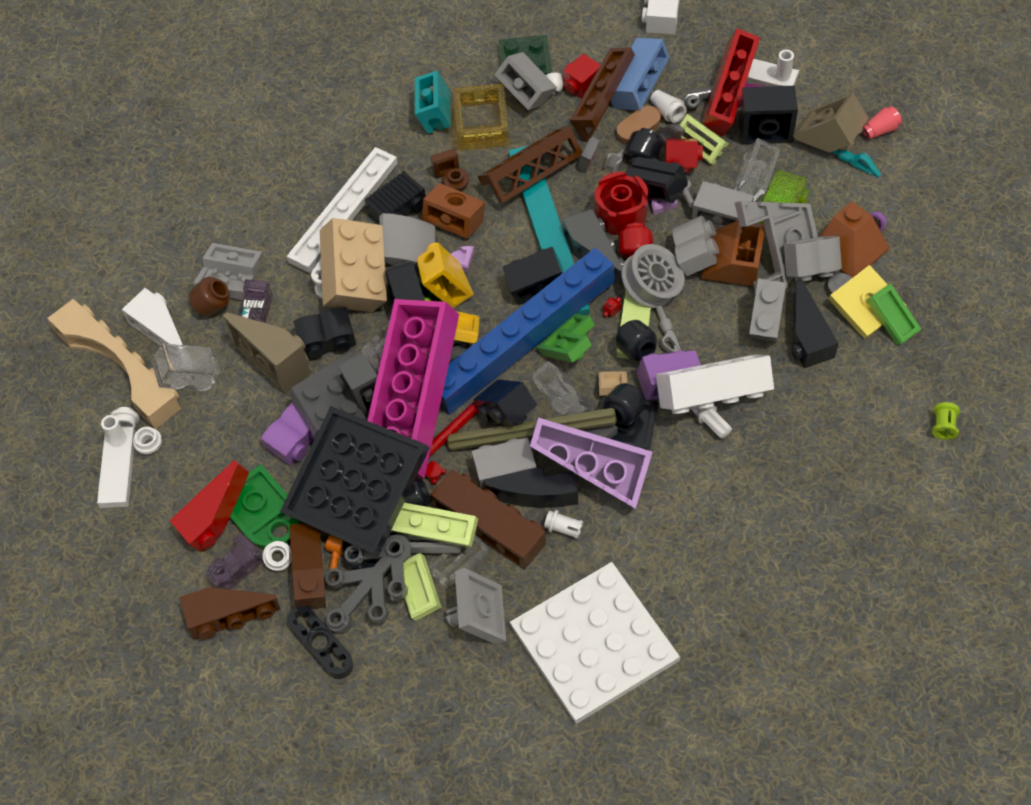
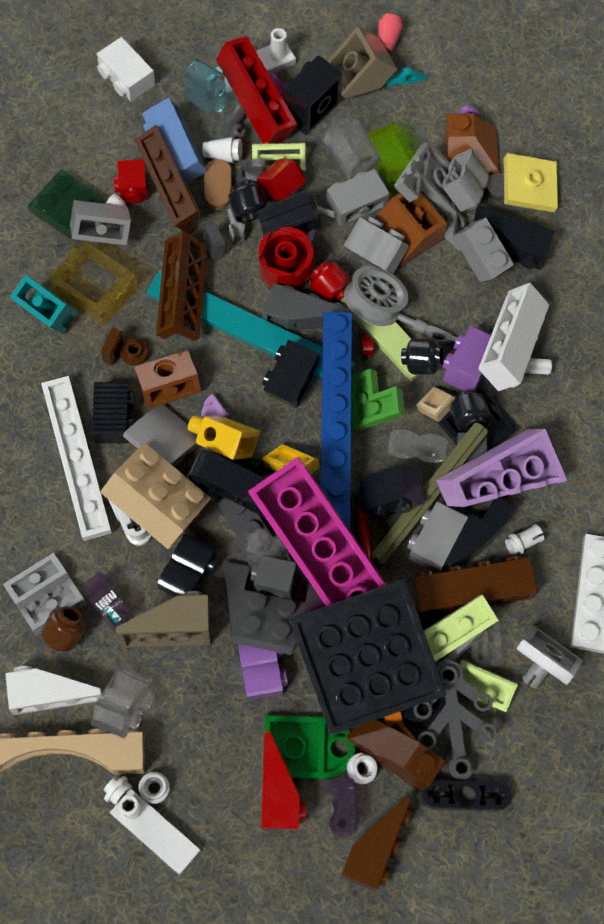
camera: 55 degrees left, 10 degrees up
(698, 53) = (205, 87): none -> clear light blue brick
(893, 314) = (559, 176): bright green tile -> none

